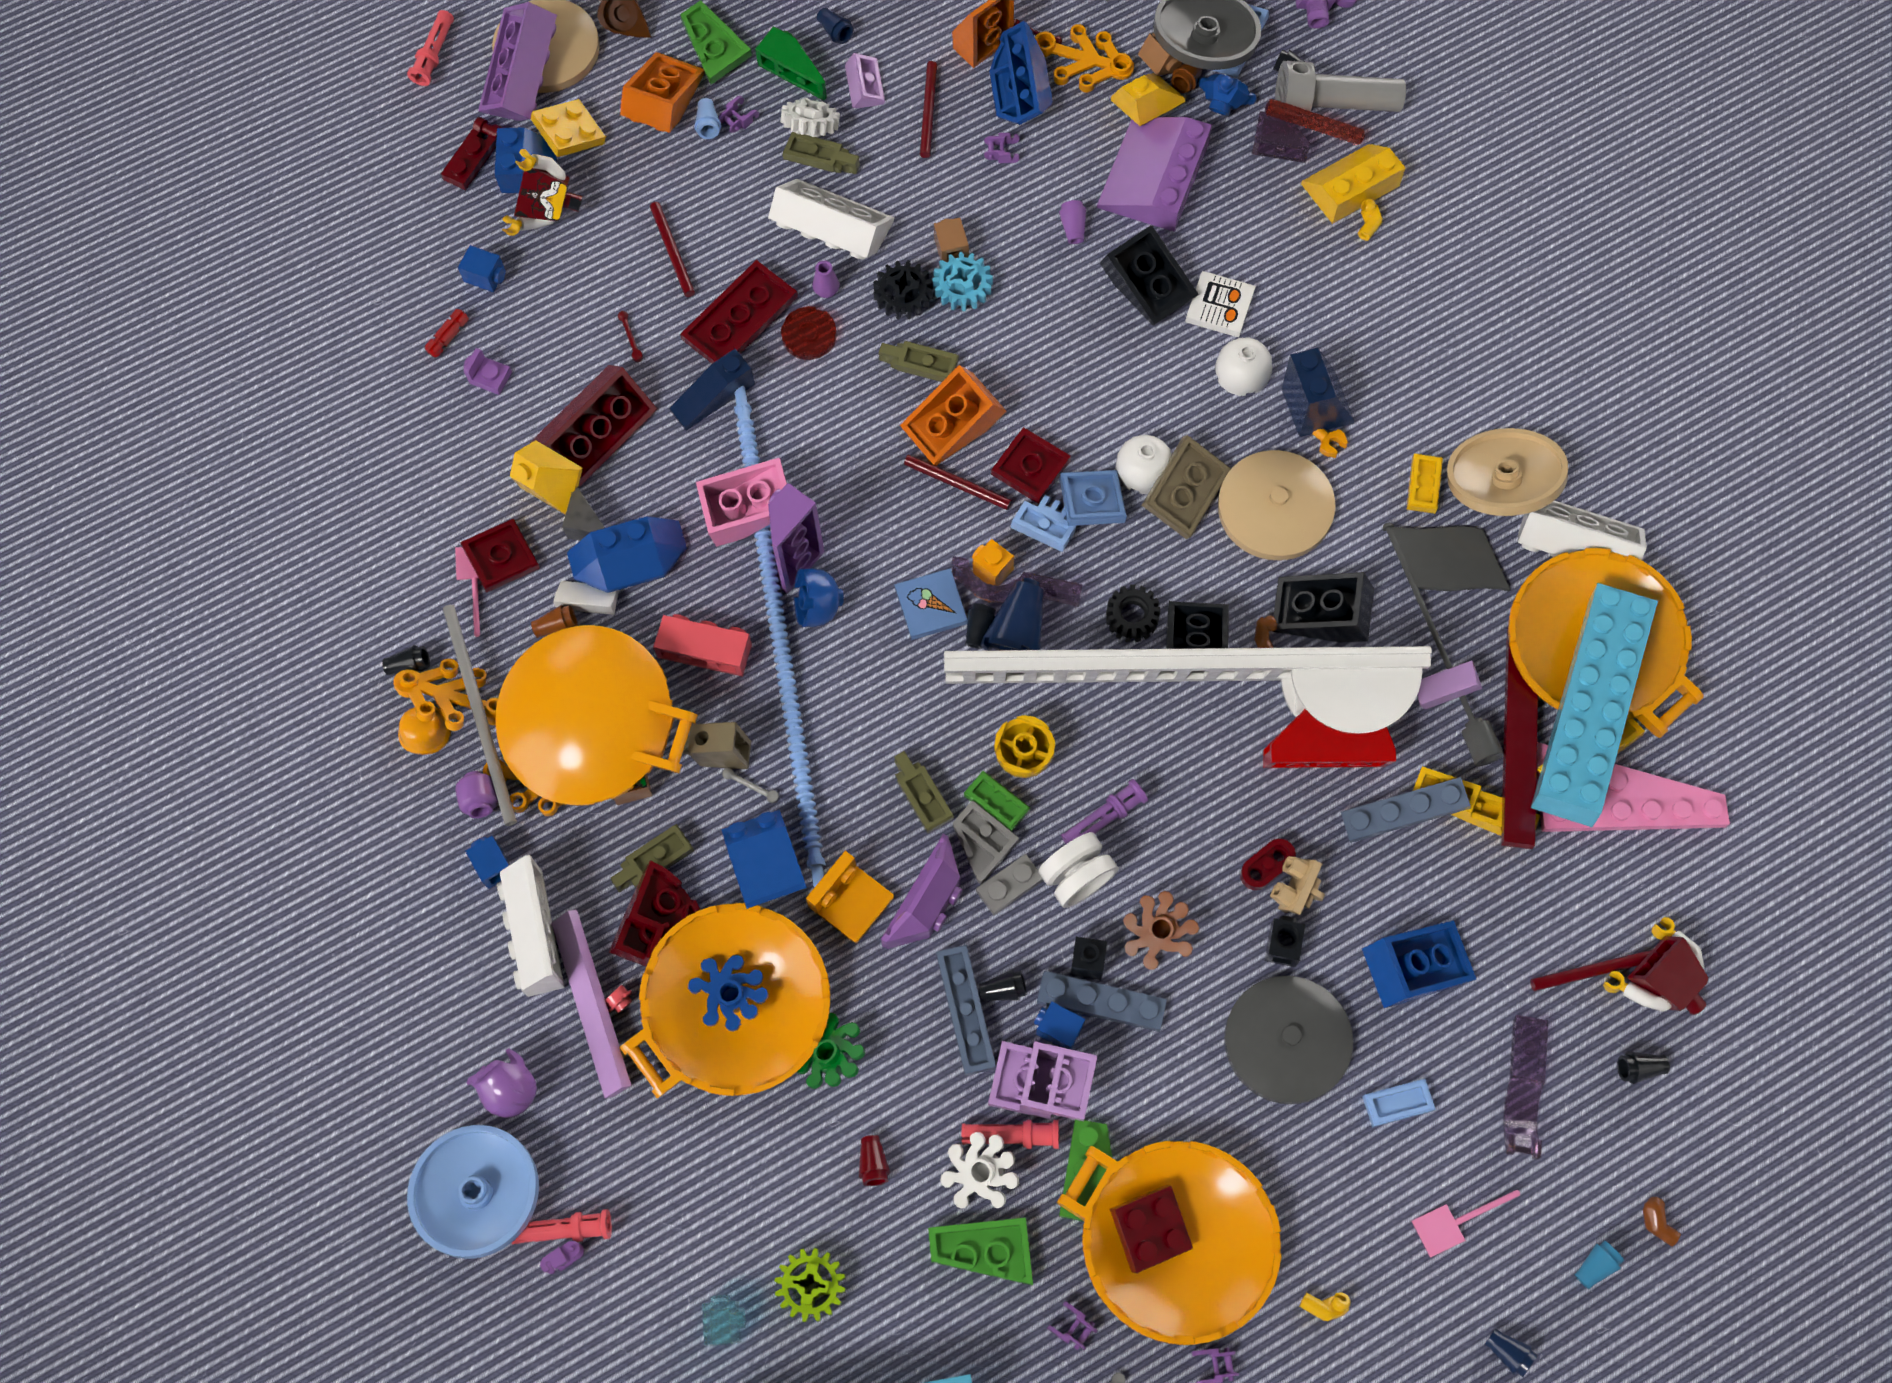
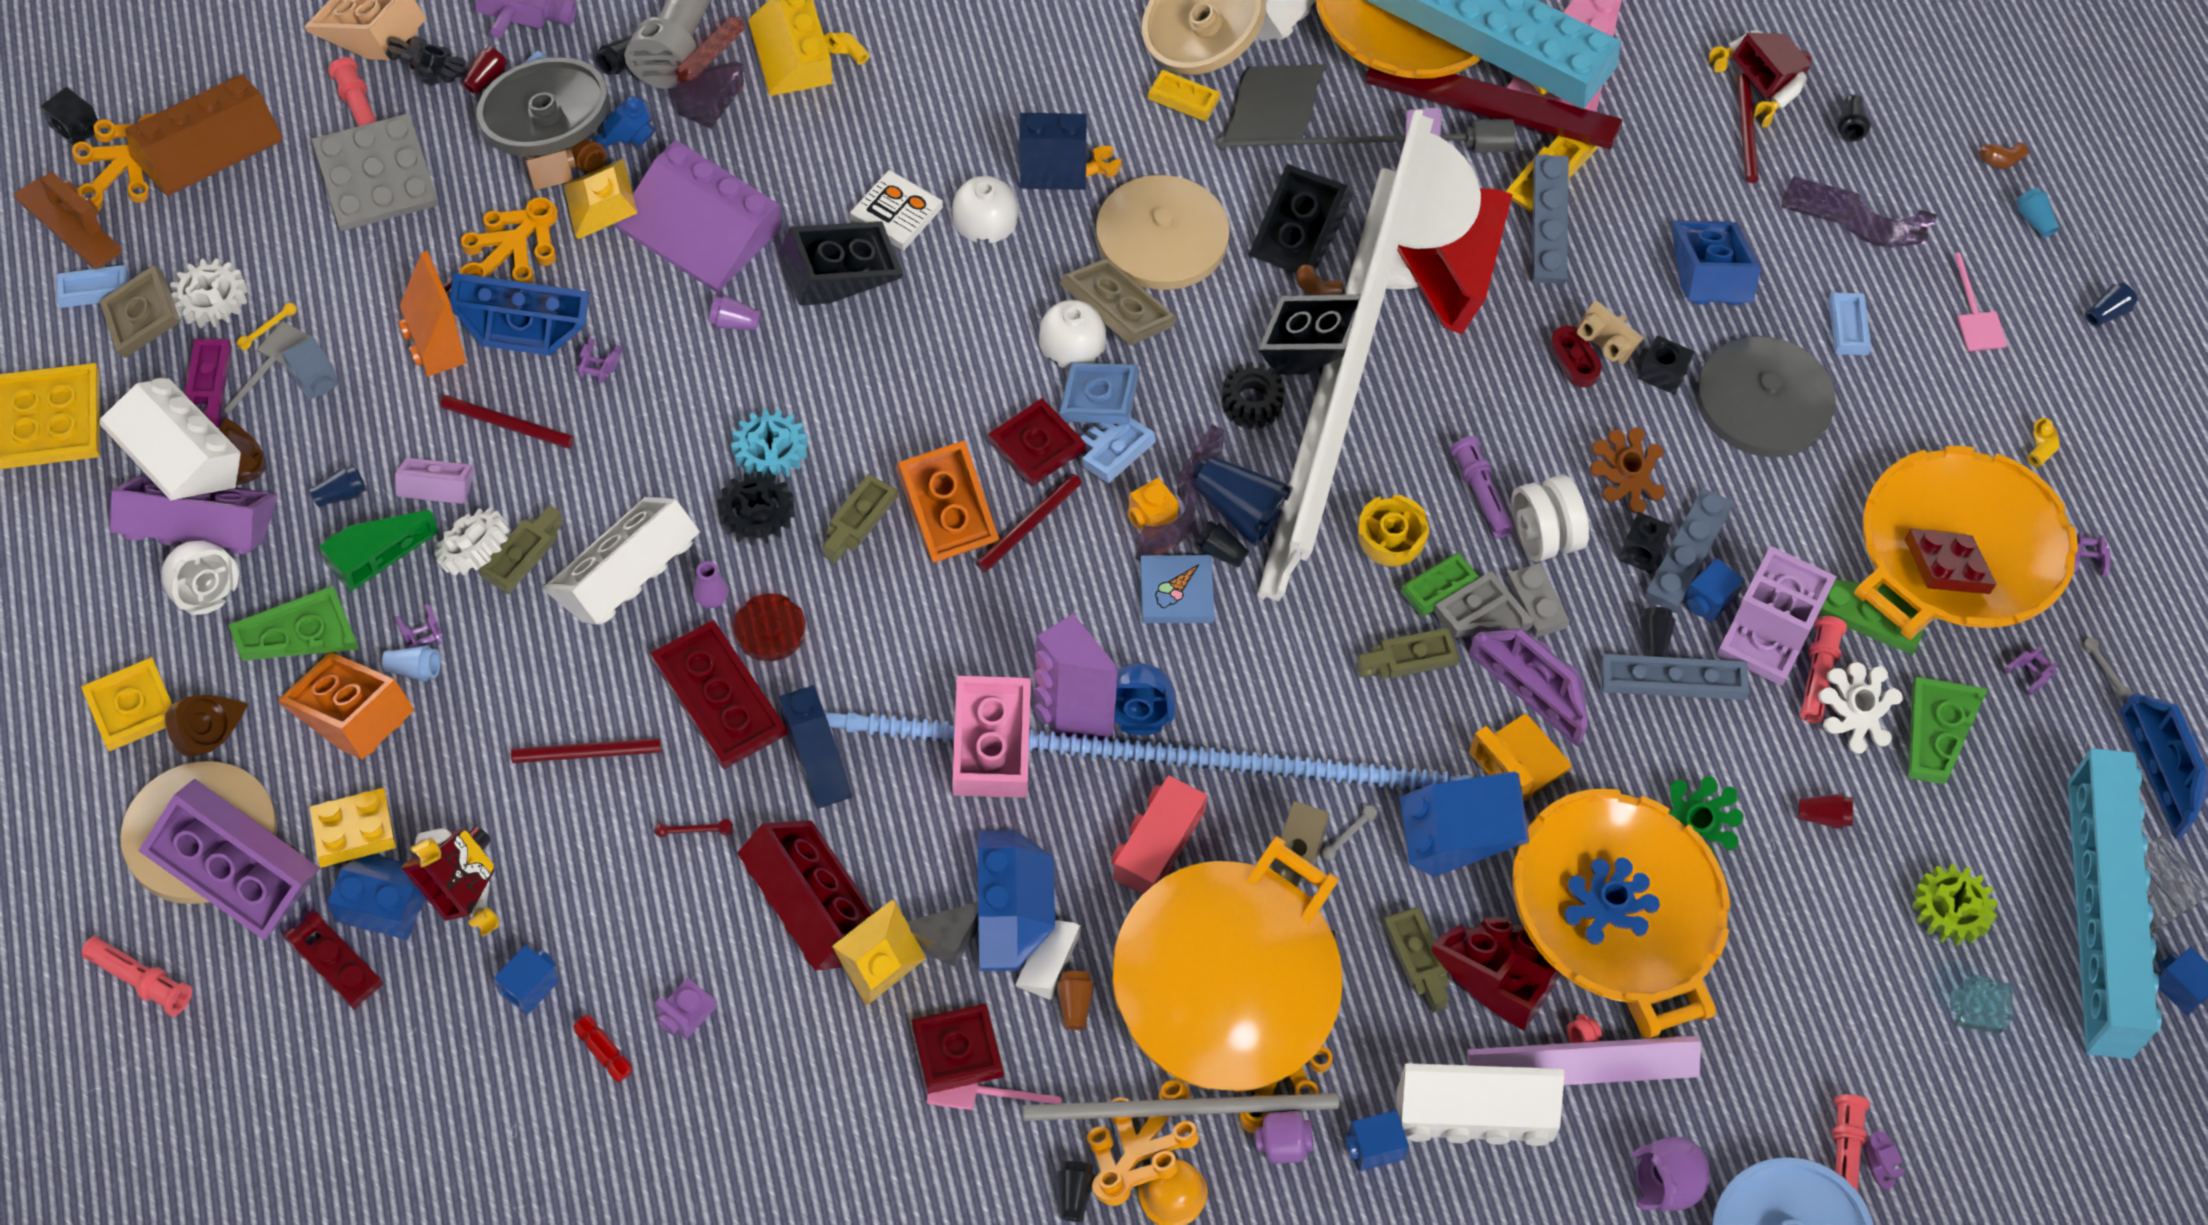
camera: 80 degrees left, 10 degrees down
(950, 238) = (708, 442): medium nougat brick -> none

